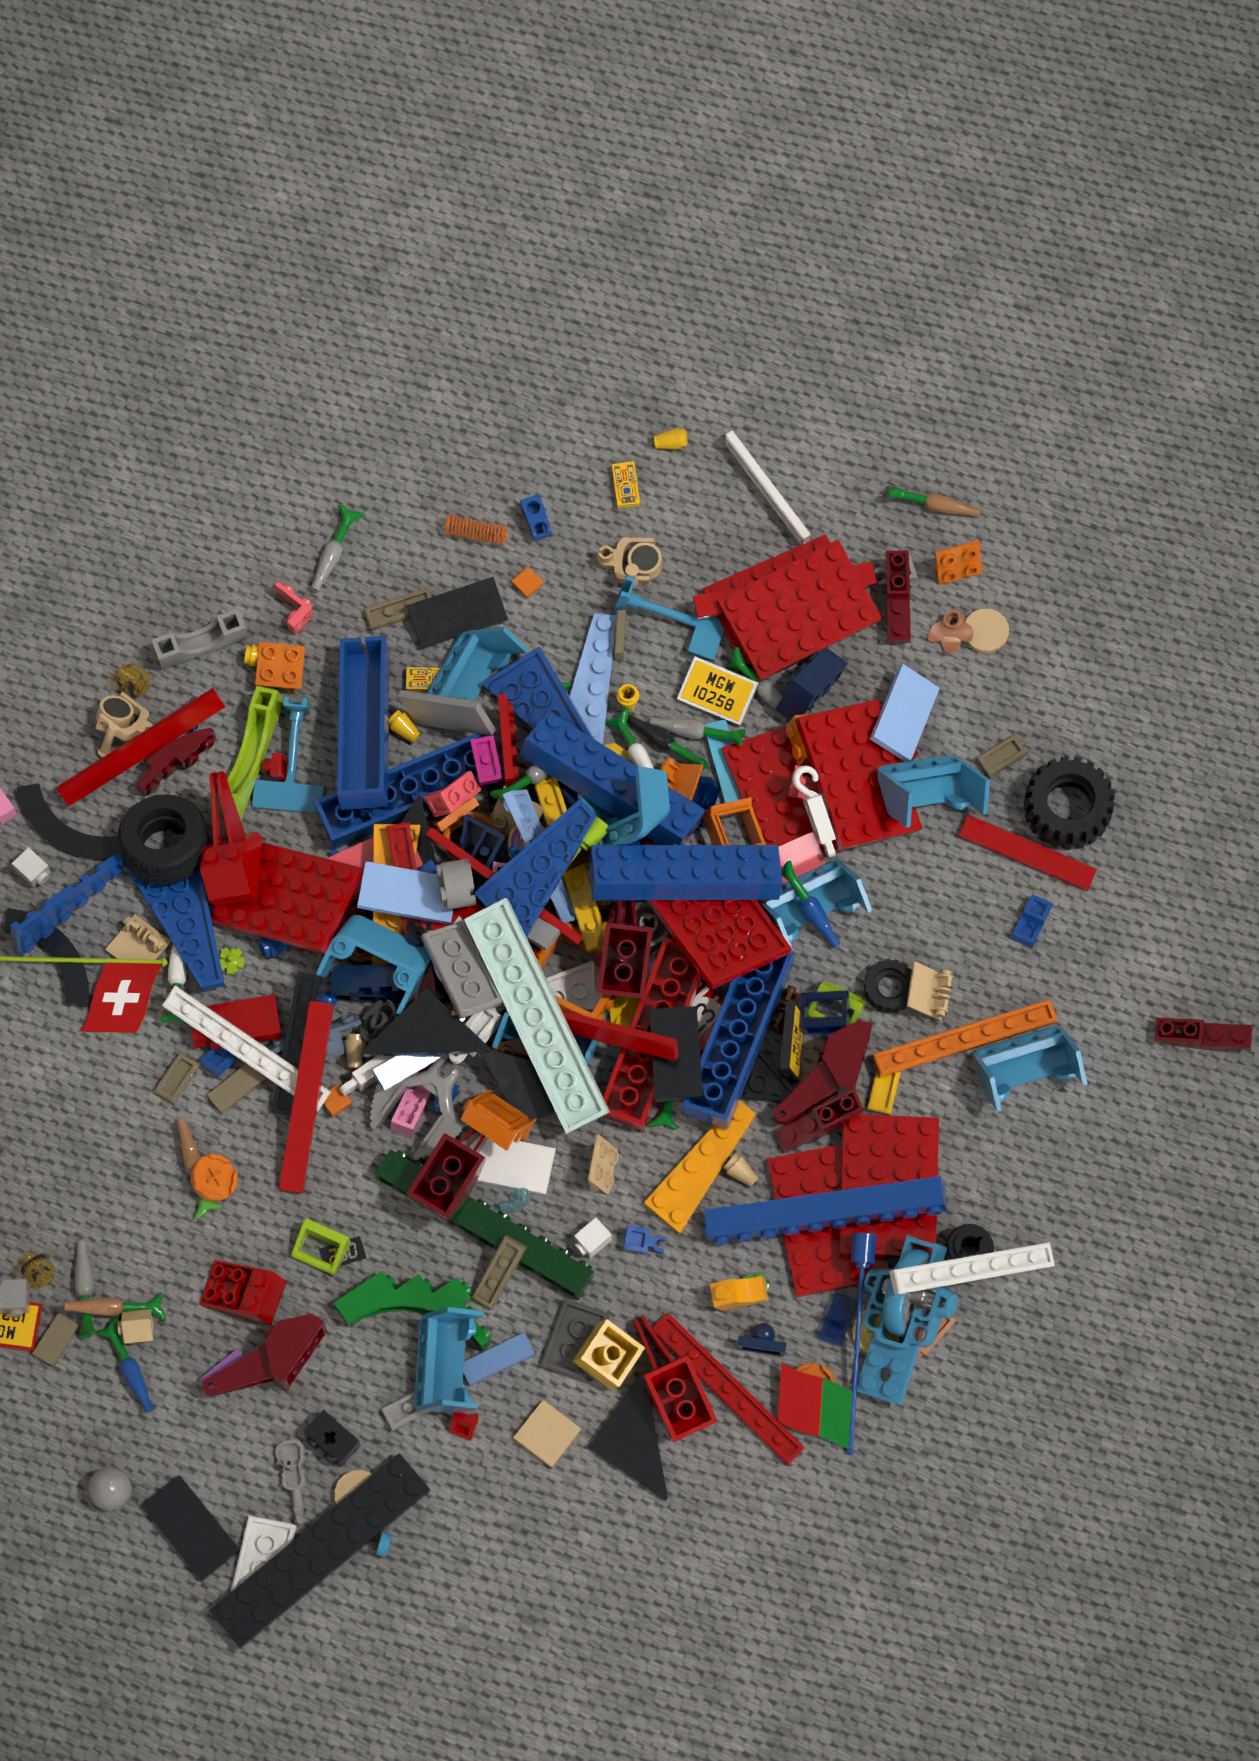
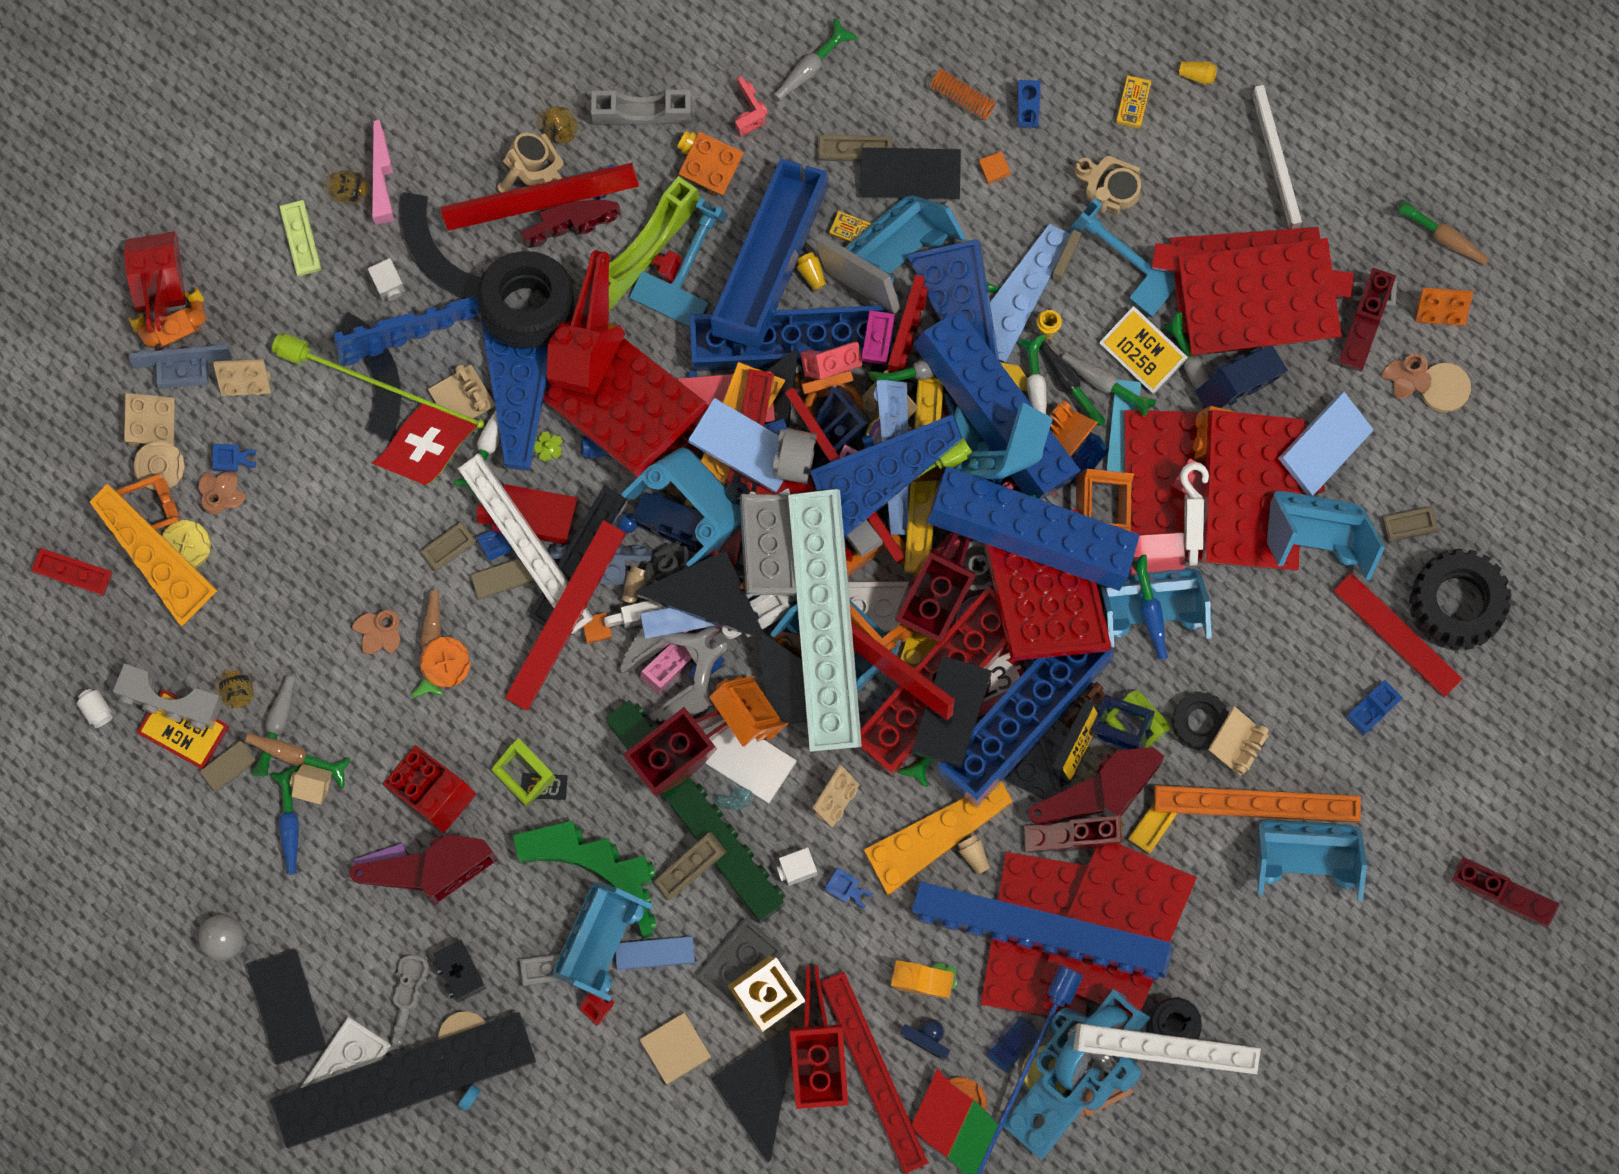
camera: 25 degrees right, 5 degrees up
(142, 1177) = (375, 634): none -> nougat plate

